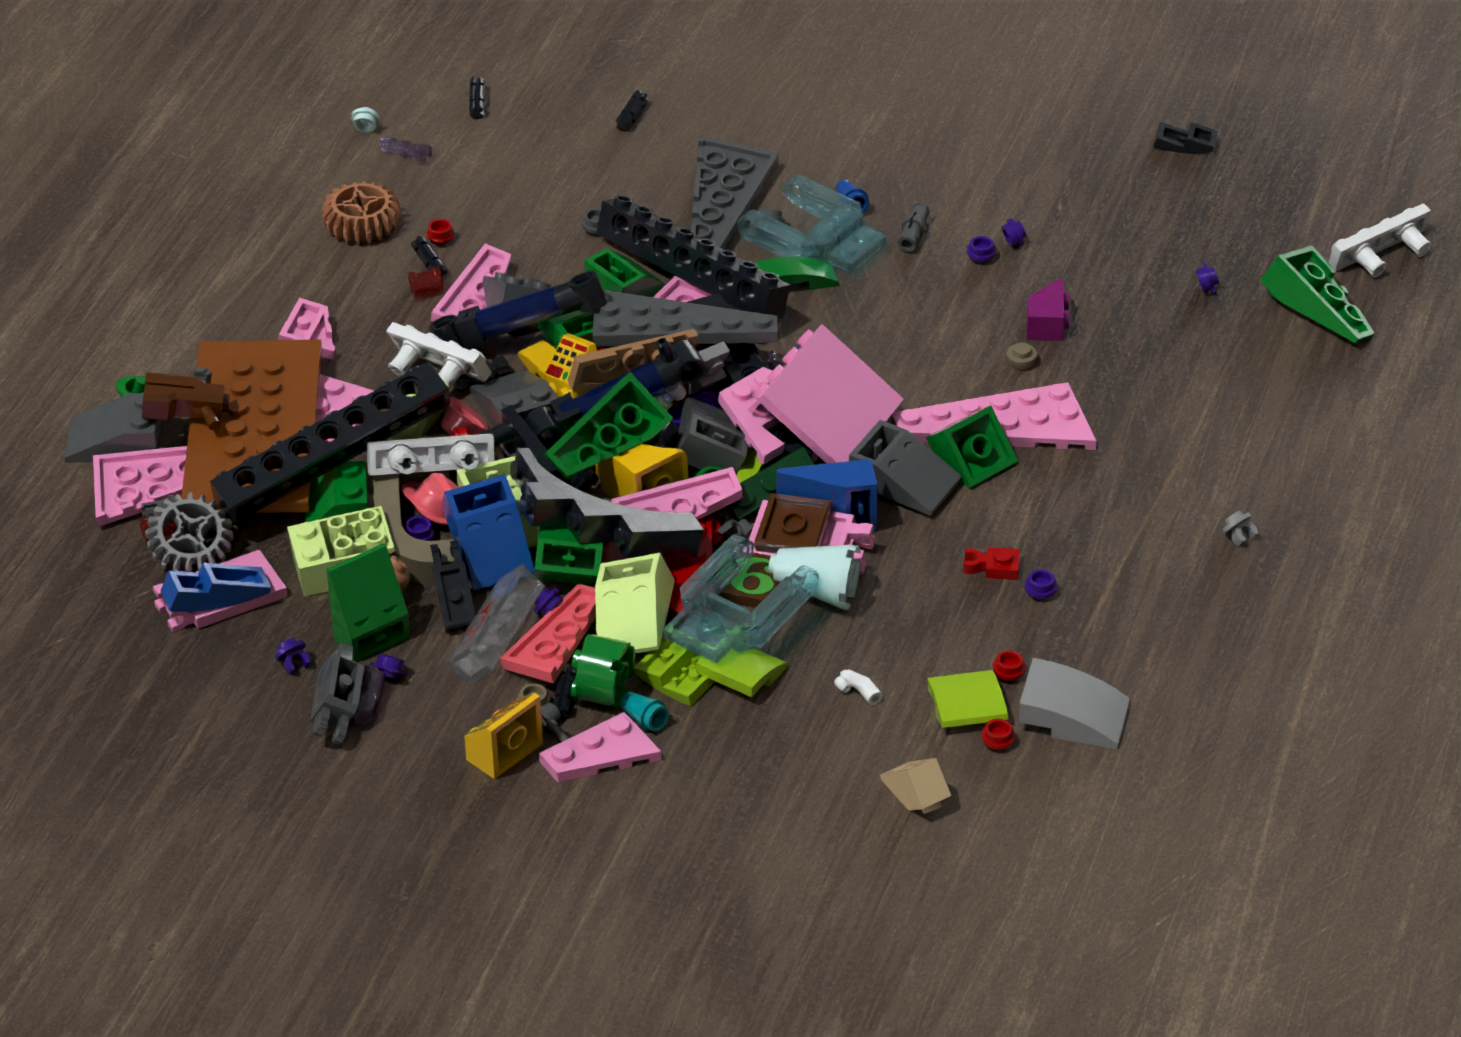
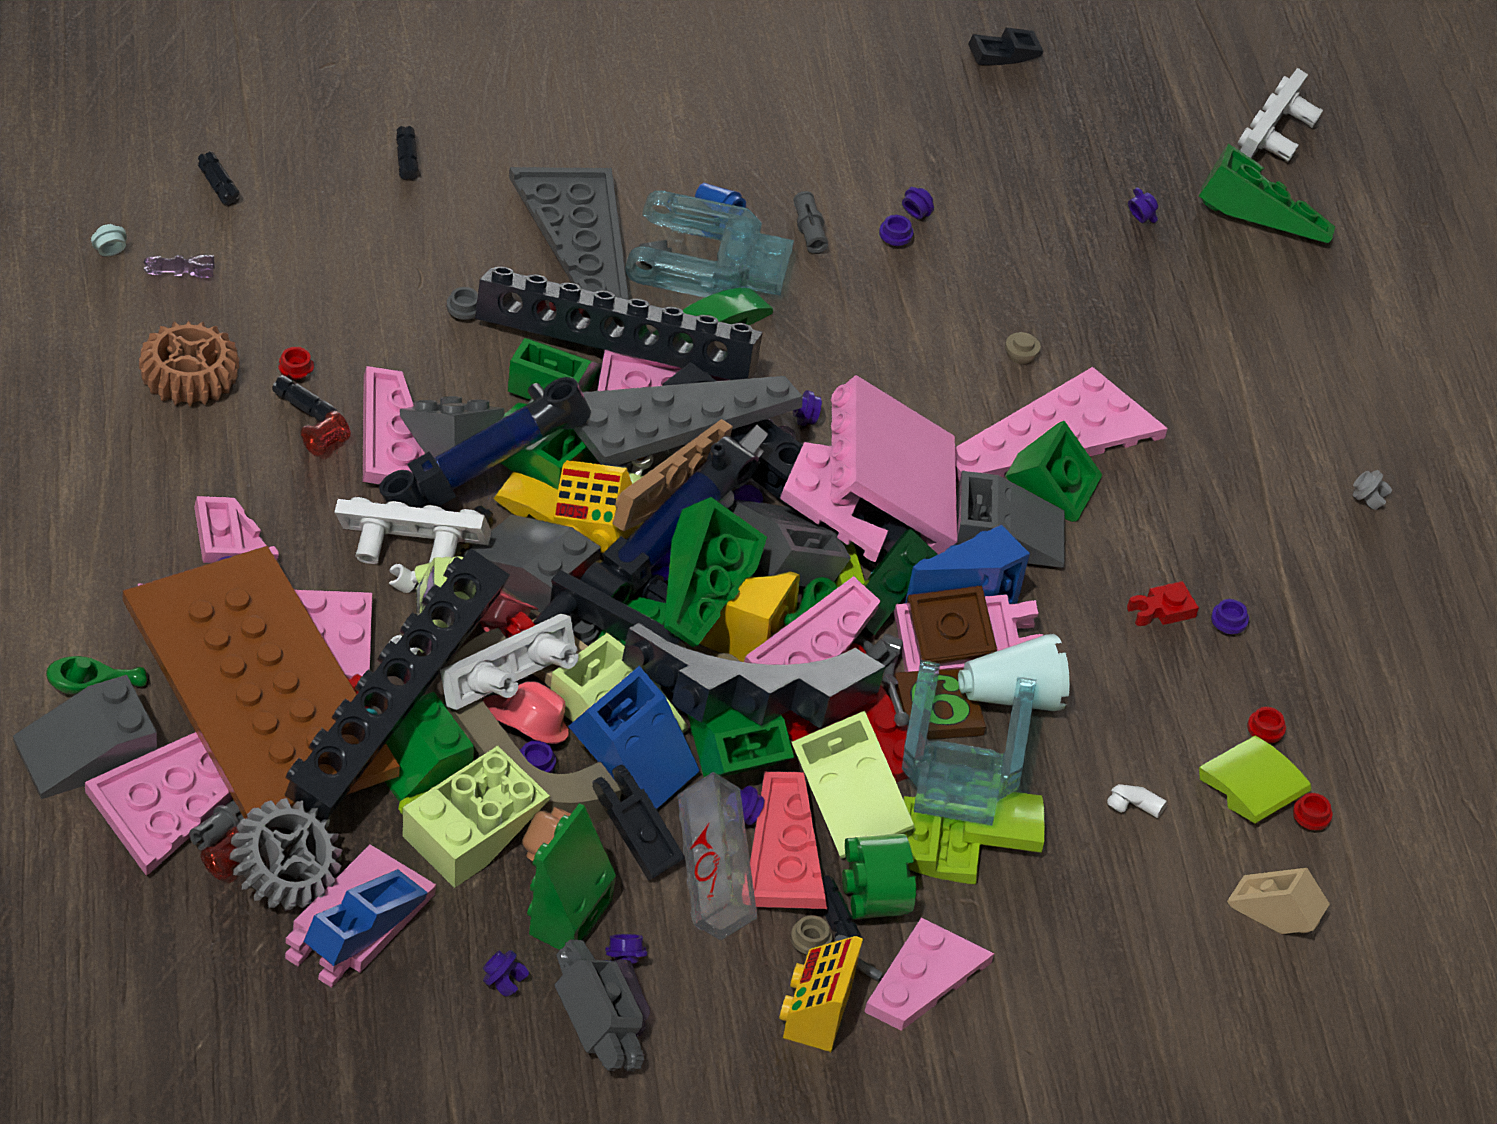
camera: 35 degrees left, 5 degrees up
(184, 397) = (172, 673): reddish brown piece -> none
(646, 711) = (943, 908): teal cone -> none
(1047, 314) = (1020, 291): magenta slope -> none
(1073, 705) = (1361, 752): light grey slope -> none

